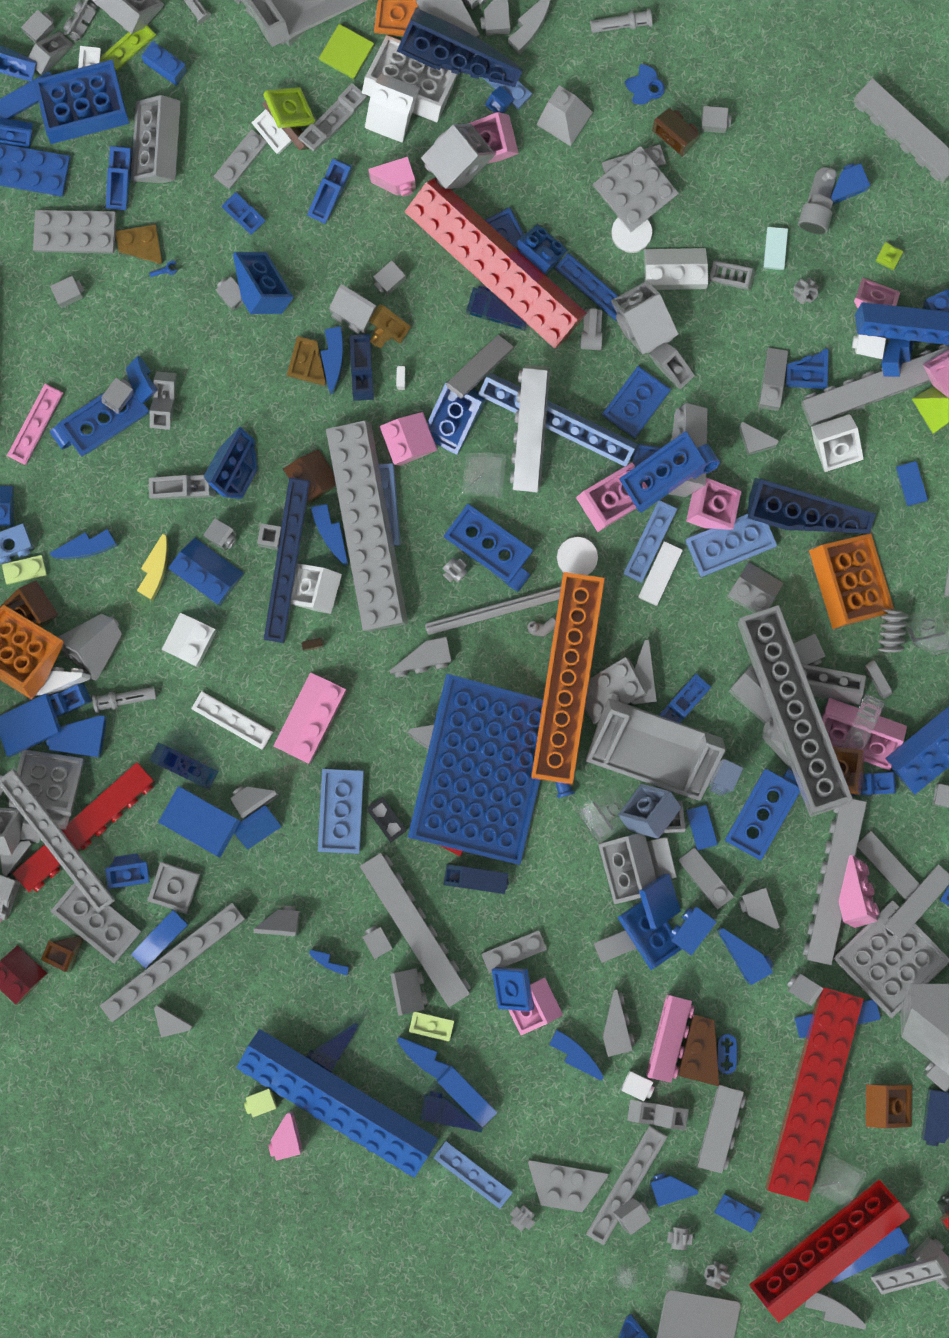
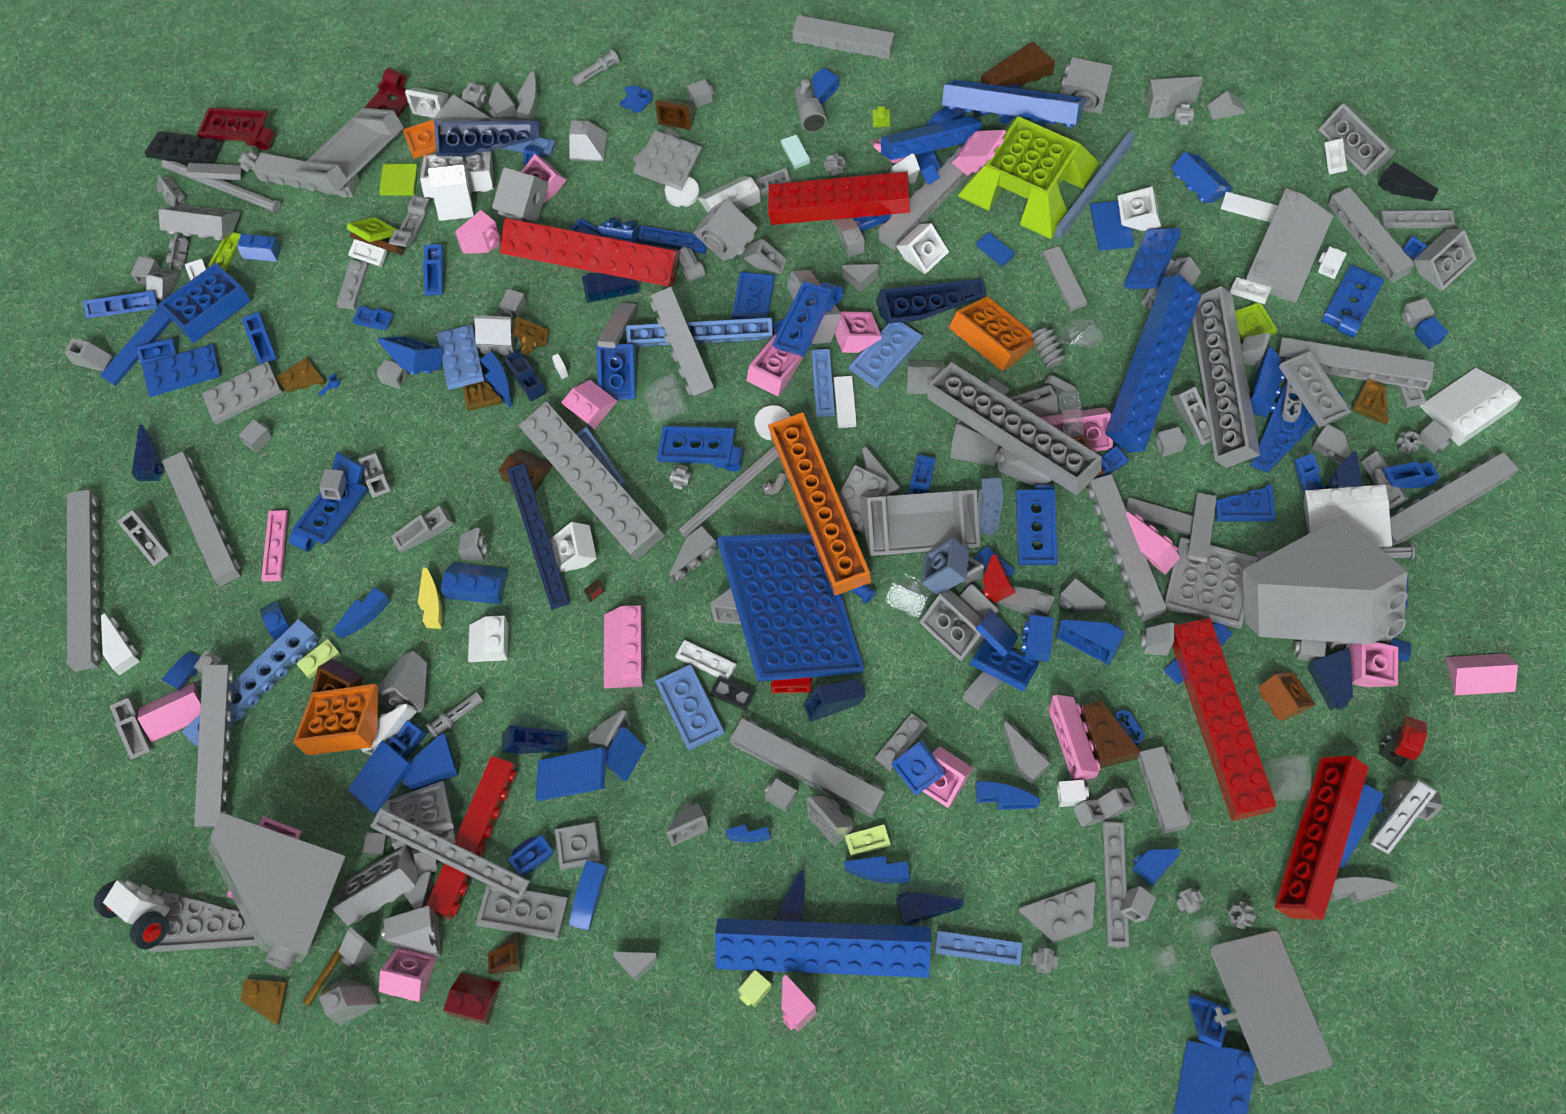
camera: 30 degrees left, 20 degrees down
(155, 140) = (277, 300): light grey slope -> none
(173, 962) = (609, 909): light grey brick -> none
(232, 720) = (558, 685): white tile -> none
(233, 465) = (456, 489): blue wedge -> none
(269, 536) = (514, 526): light grey brick -> none
(308, 311) = (460, 357): none -> medium blue plate
(330, 532) = (563, 501): blue slope -> none
(380, 772) = (705, 660): none -> white tile
(467, 1096) = (932, 879): blue slope -> none
(691, 849) = (996, 581): none -> red slope
(737, 1213) = (1223, 854): blue plate -> none
(783, 340) = (839, 198): none -> red brick

